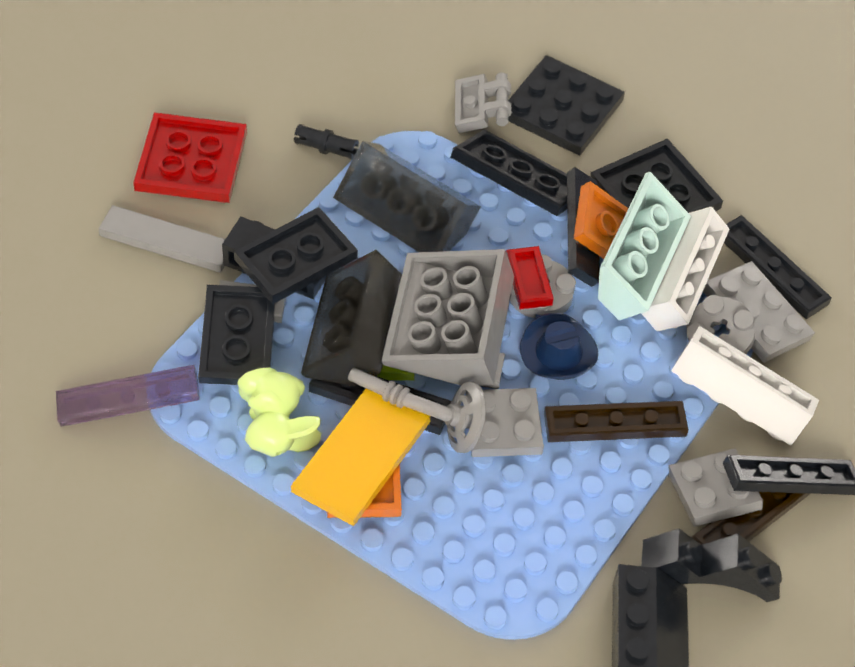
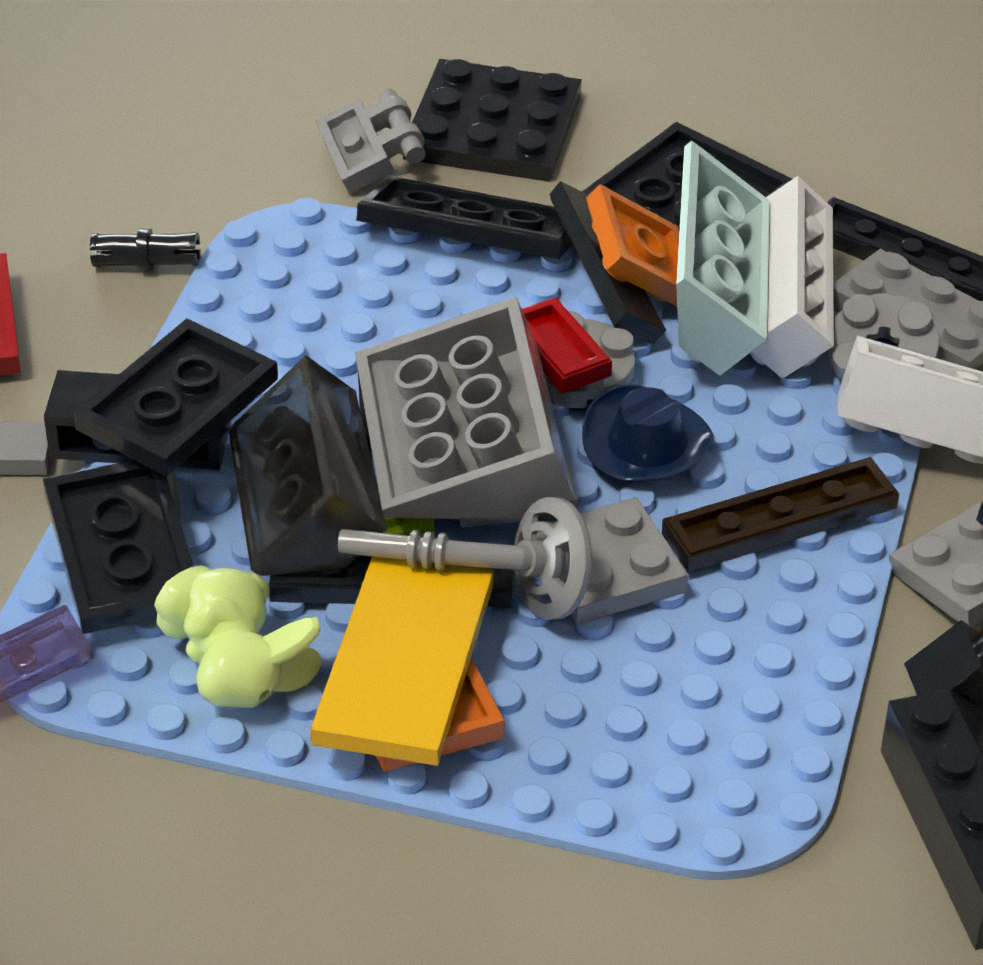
camera: 15 degrees left, 10 degrees down
(405, 200) = (309, 289): clear smoke slope -> none

